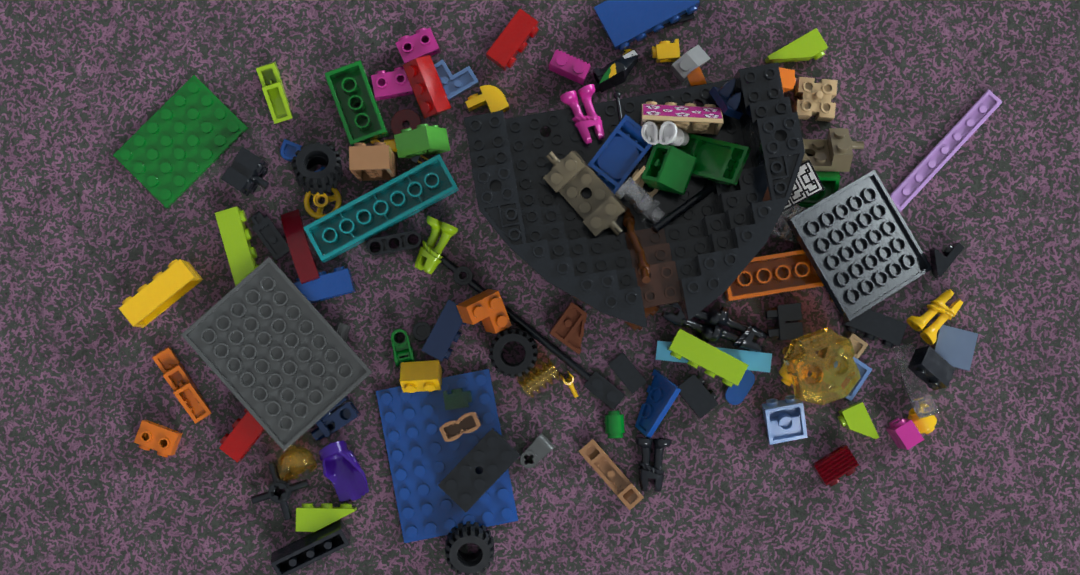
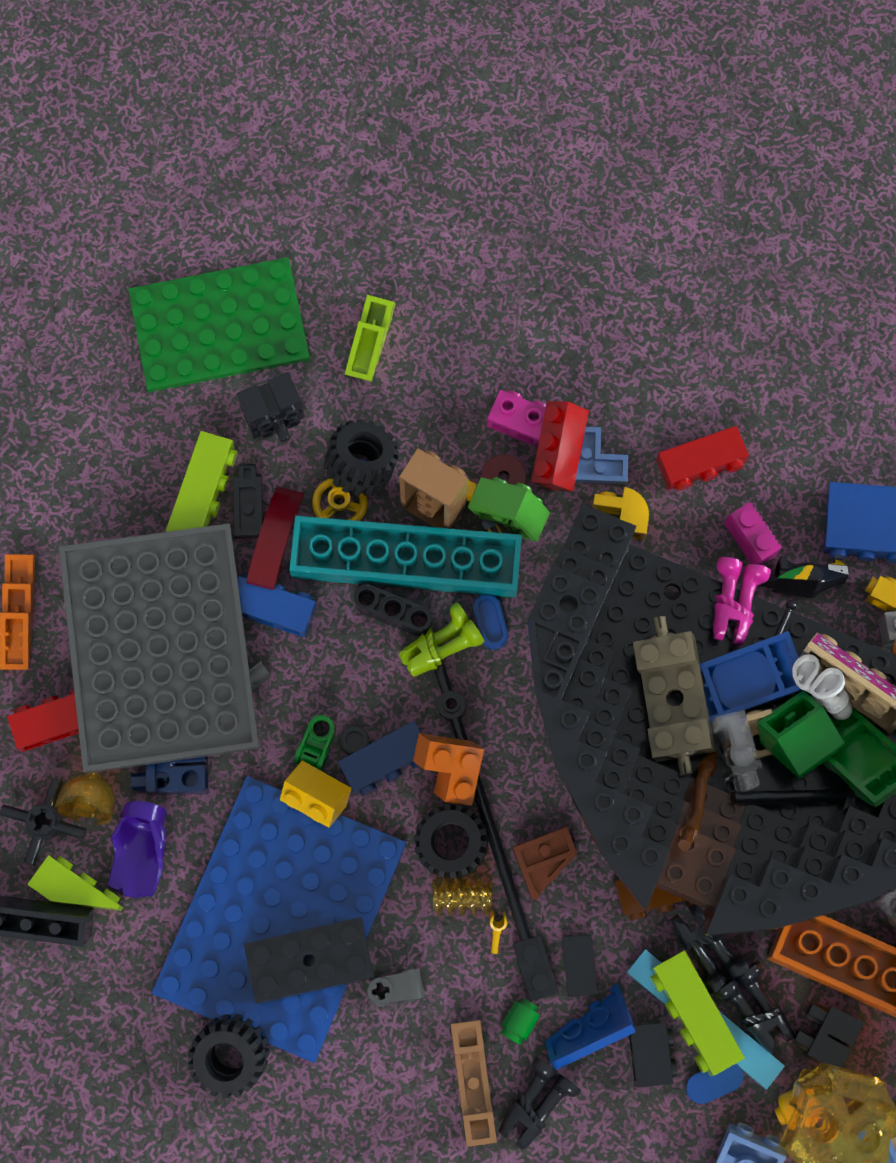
camera: 30 degrees right, 10 degrees down
(160, 293) = (69, 483): yellow piece -> none
(289, 149) = (340, 415): blue tile -> none
(351, 86) = (463, 388): green brick -> none
(417, 45) = (582, 390): dark pink brick -> none
(453, 213) = (490, 621): none -> blue tile
(455, 428) = (314, 888): medium nougat brick -> none
(457, 399) = (341, 852): clear green brick -> none

